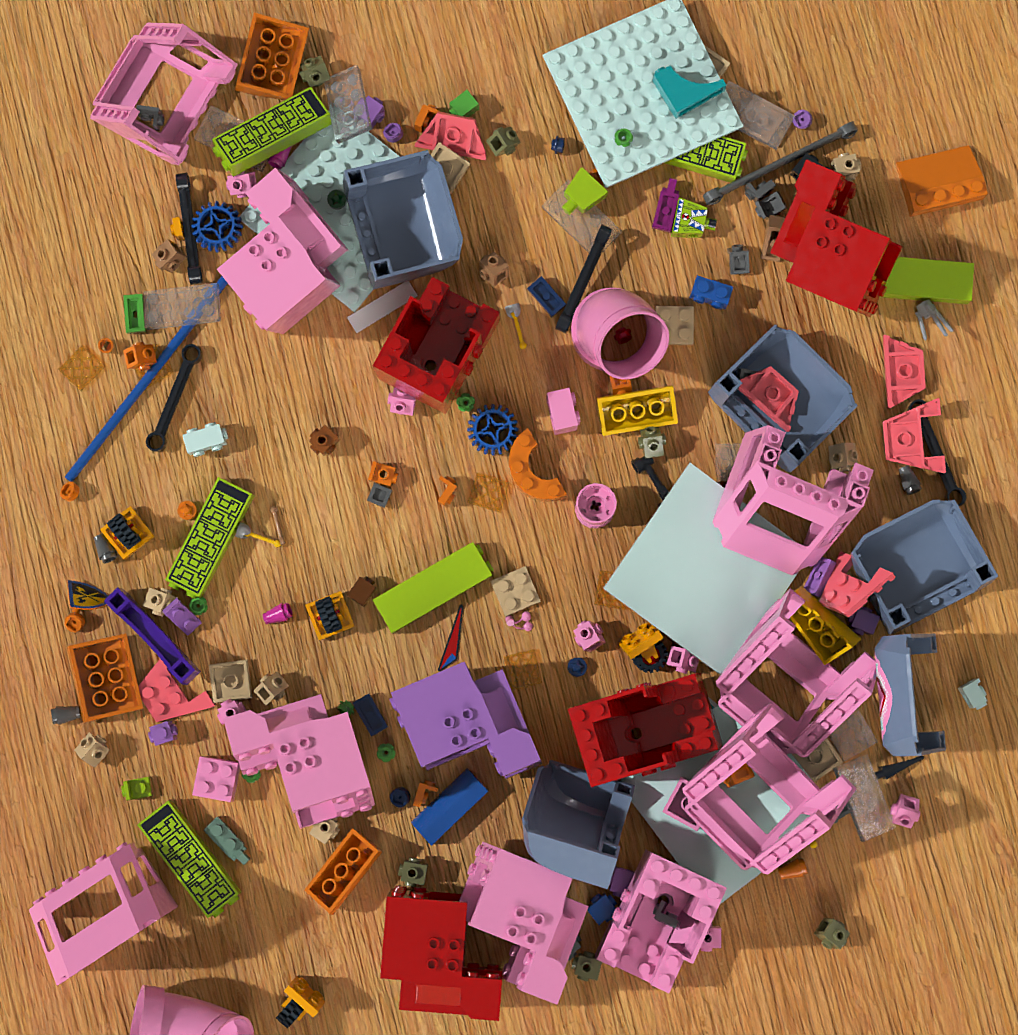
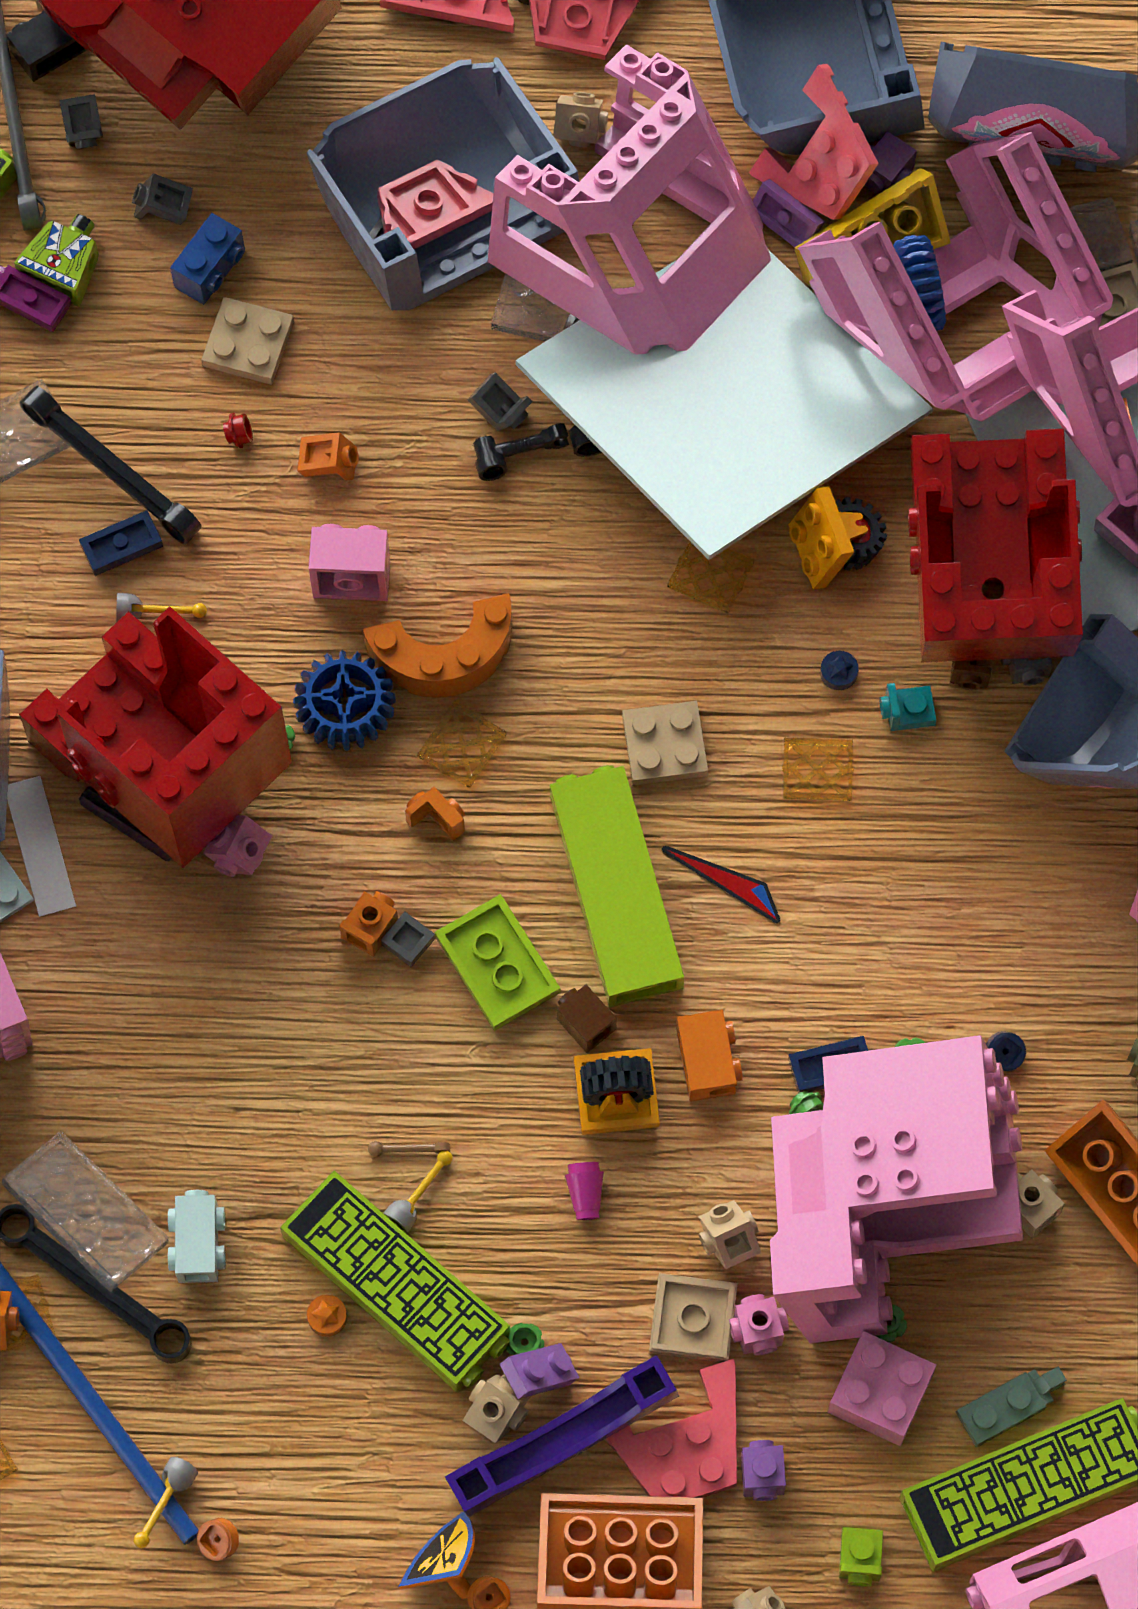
camera: 75 degrees left, 15 degrees down
(92, 463) = (176, 1476): none -> hinge
(105, 550) = (358, 1496): dark grey cone -> none
(127, 532) = (337, 1443): plate -> none
(205, 384) = (85, 1211): none -> clear plate
(323, 434) = (269, 1012): dark orange brick -> none
(358, 654) = (707, 1055): none -> orange brick
(379, 541) = (497, 962): none -> lime plate
(421, 795) = (1007, 1008): orange bracket -> none
(449, 806) = (1047, 963): blue brick -> none
(457, 715) = (879, 869): medium lavender piece -> none
(493, 268) = (36, 617): medium nougat brick -> none
(526, 616) = (719, 737): bright pink piece -> none
(563, 703) = (908, 707): none -> teal bracket
(589, 635) = (800, 627): bright pink brick -> none
(598, 495) = (540, 533): bright pink wheel -> none
(599, 314) = (205, 435): bright pink cylinder -> none
(637, 410) = (387, 438): yellow brick -> none
(652, 442) = (455, 427): olive brick -> none
(673, 460) = (499, 403): none -> dark grey bracket
(682, 660) = (876, 476): bright pink brick -> none
(762, 191) = (50, 138): dark grey bracket -> none
(772, 230) = (142, 129): medium nougat slope -> none
(790, 655) = (921, 266): none -> blue gear
(909, 480) = (654, 28): dark grey cone -> none
(973, 694) = (1065, 25): light aqua brick -> none

